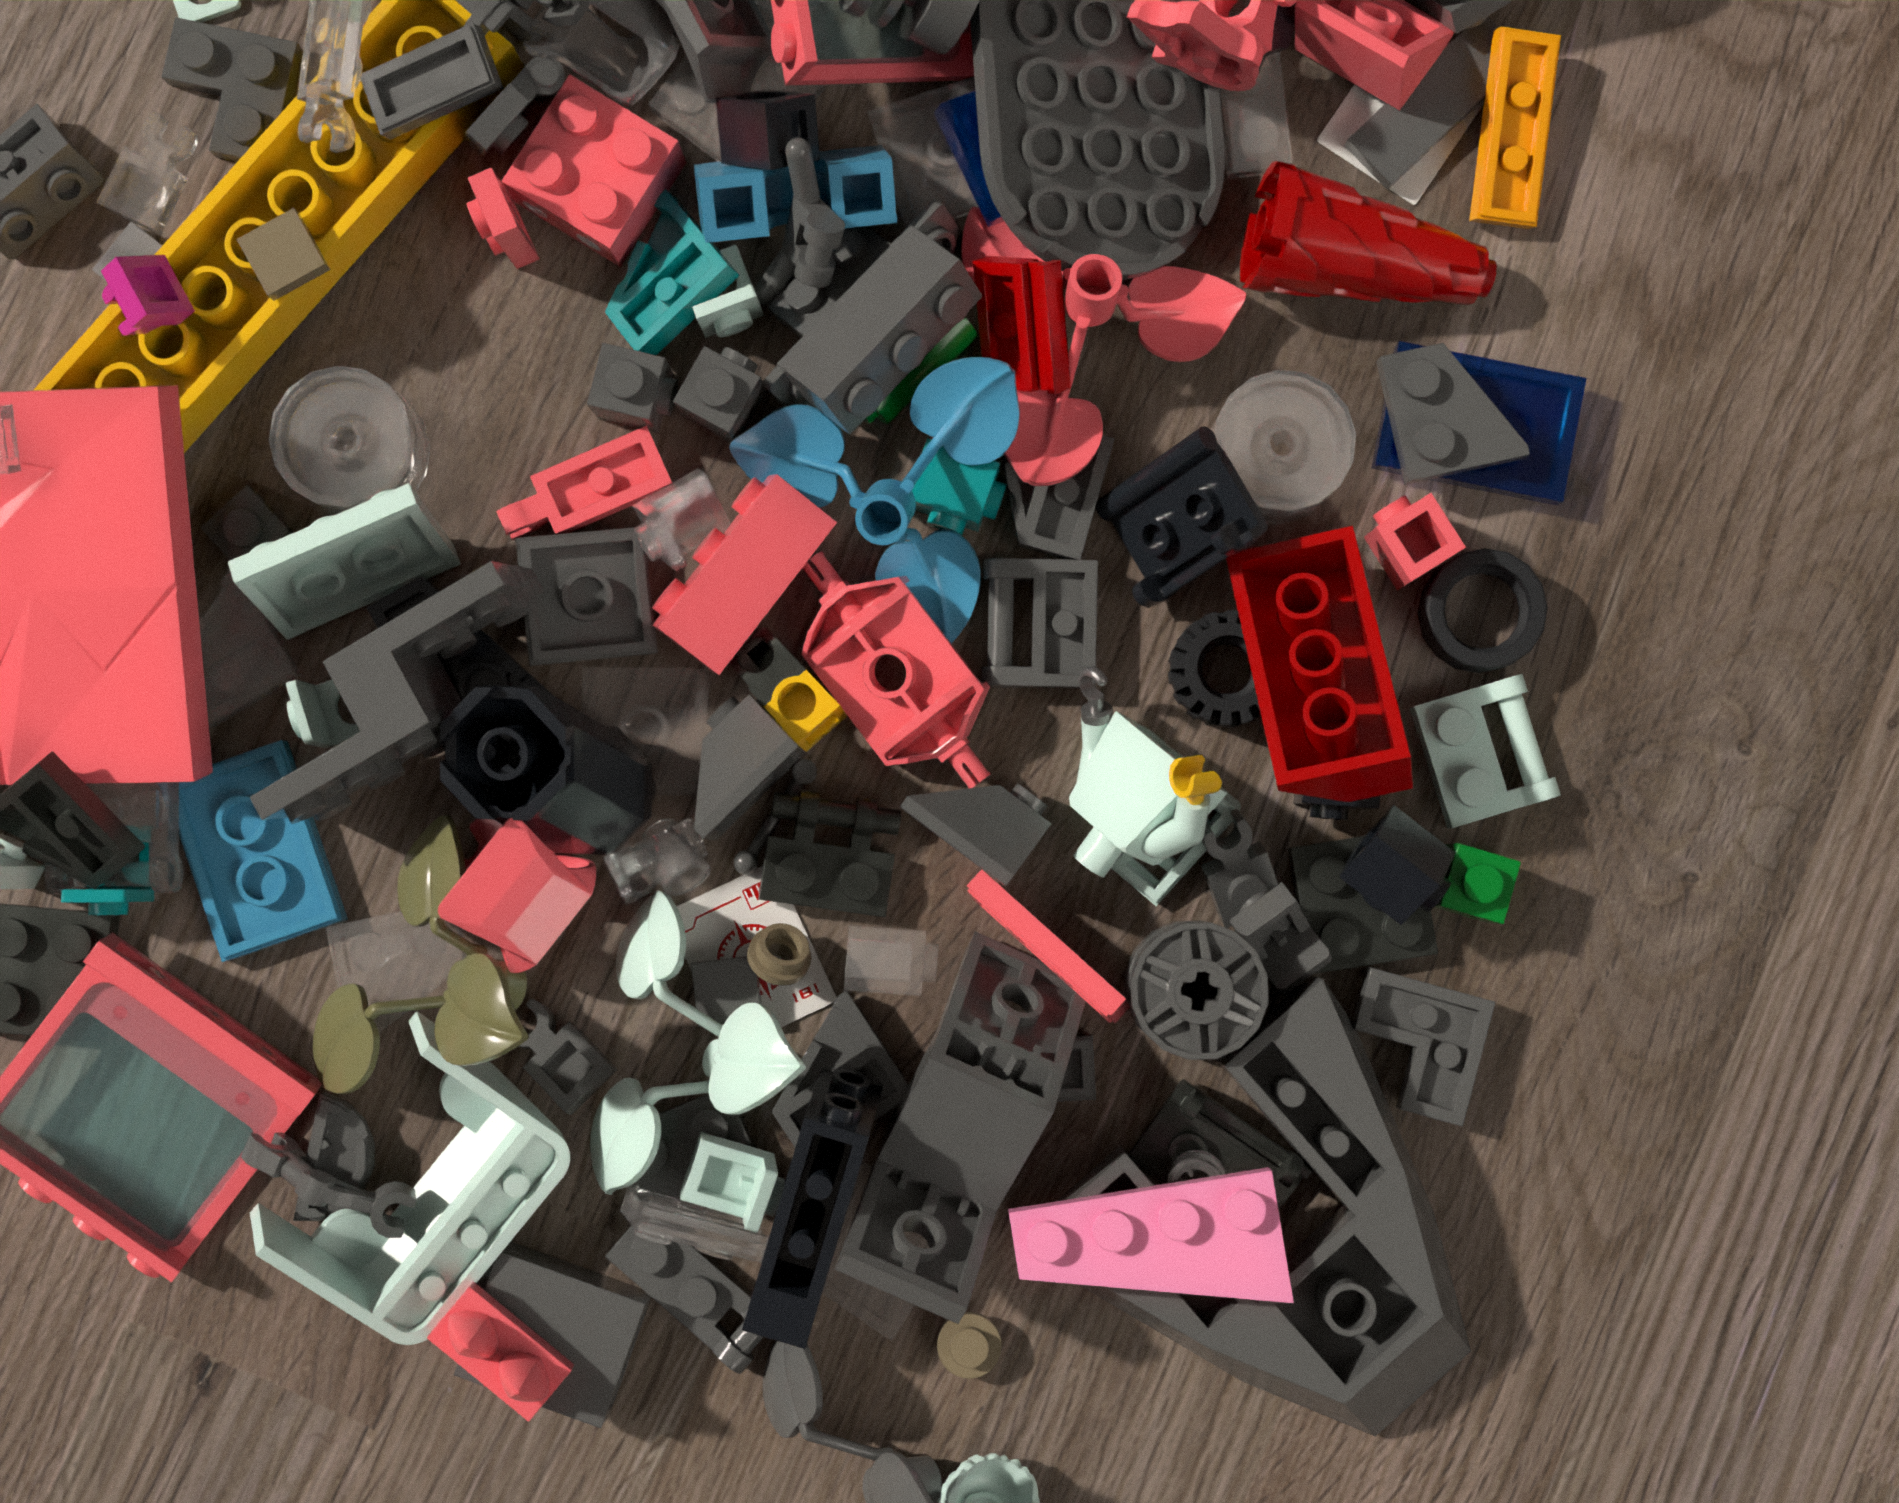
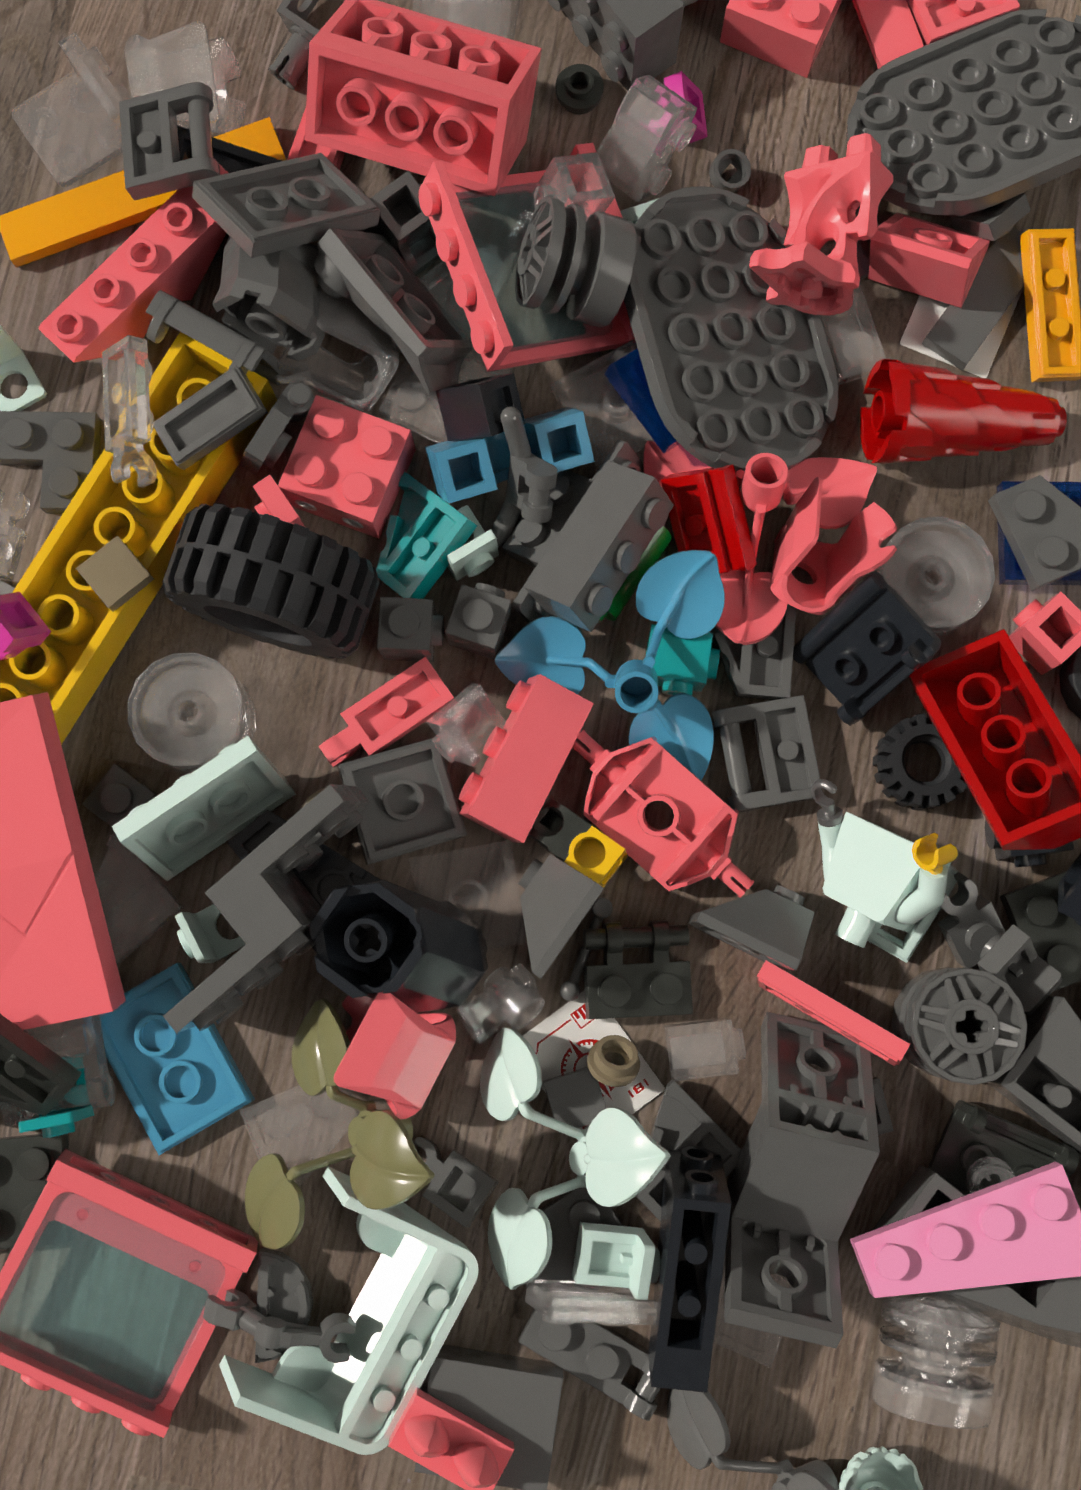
camera: 15 degrees left, 5 degrees down
(469, 300) = (271, 580): none -> black tyre
(970, 1346) = (834, 1365): dark tan plate -> none
(1077, 1379) = (934, 1372): none -> clear wheel
(1166, 405) = (832, 566): none -> coral piece

